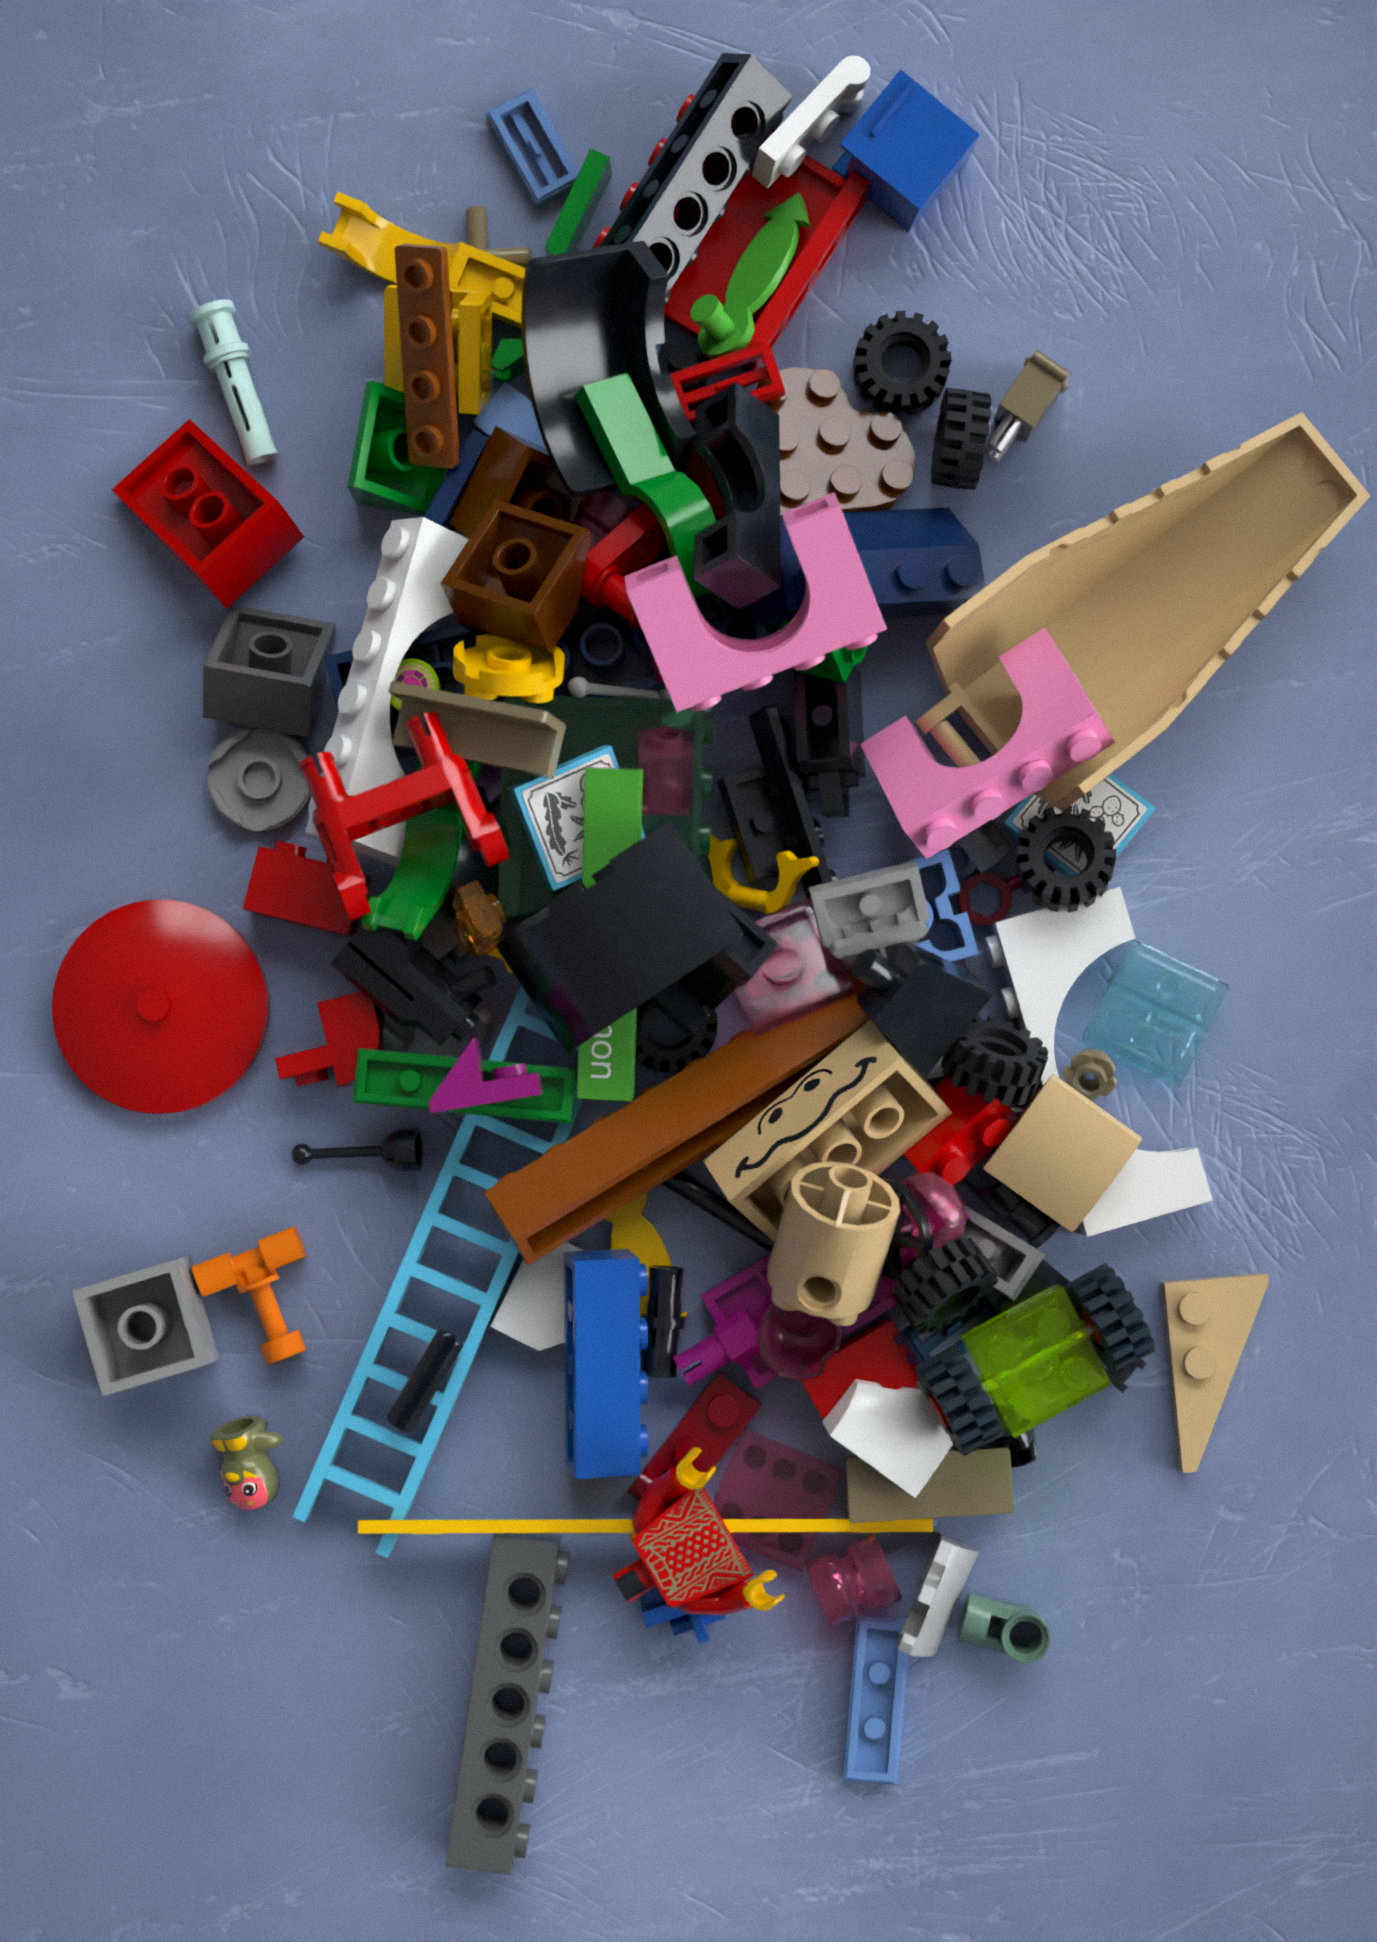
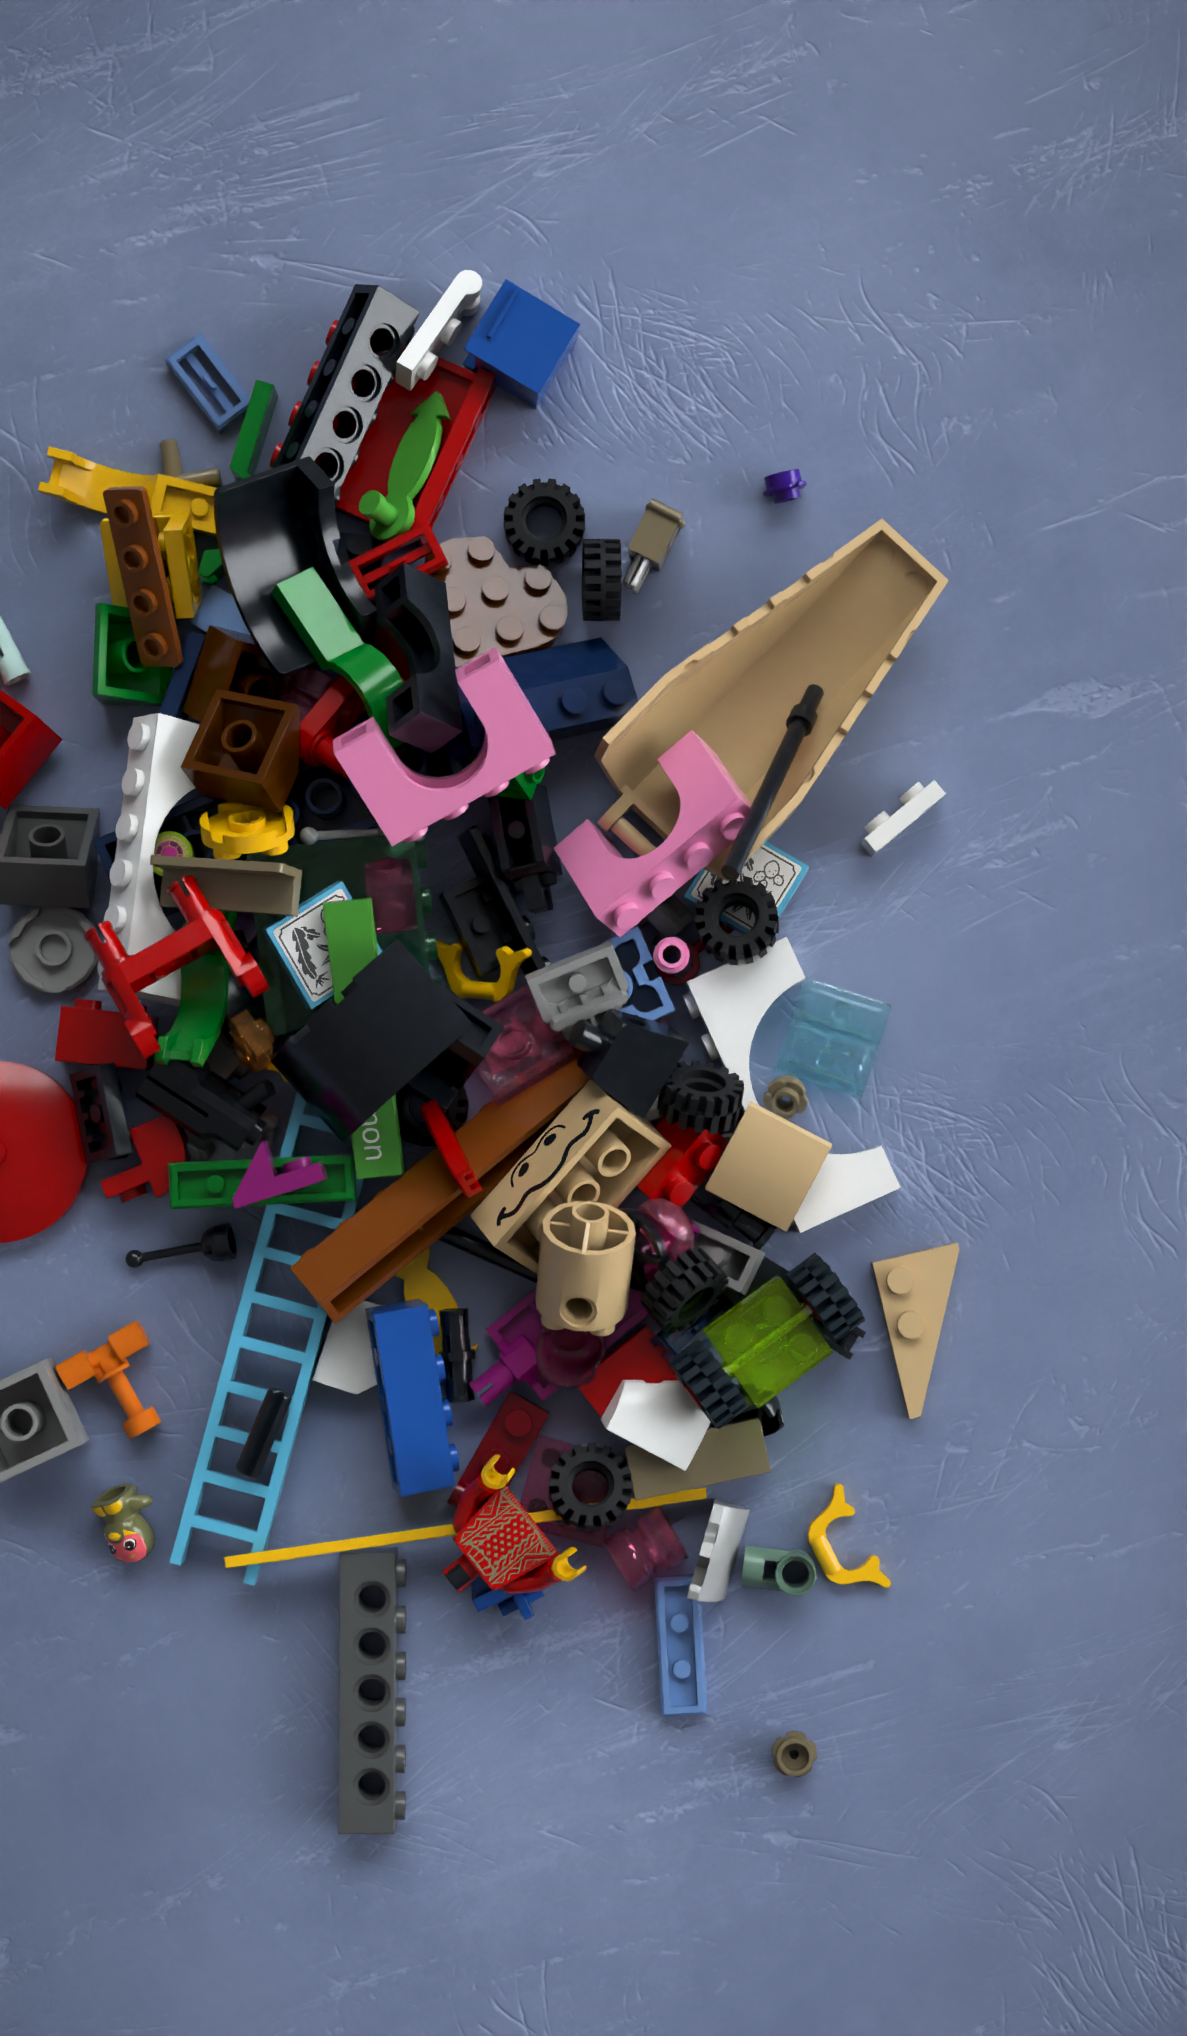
camera: 10 degrees left, 0 degrees up
(287, 979) = (101, 1113): none -> black bracket
(693, 1079) = (450, 1149): none -> red tile
(831, 1490) = (590, 1515): none -> black tyre
(992, 1861) = (794, 1766): none -> dark tan plate
(993, 882) = (674, 944): none -> bright pink pin
(1054, 1598) = (824, 1553): none -> yellow helmet
(1169, 641) = (798, 724): none -> black bar
(1187, 361) = (784, 486): none -> dark purple plate
(1290, 752) = (915, 803): none -> white plate

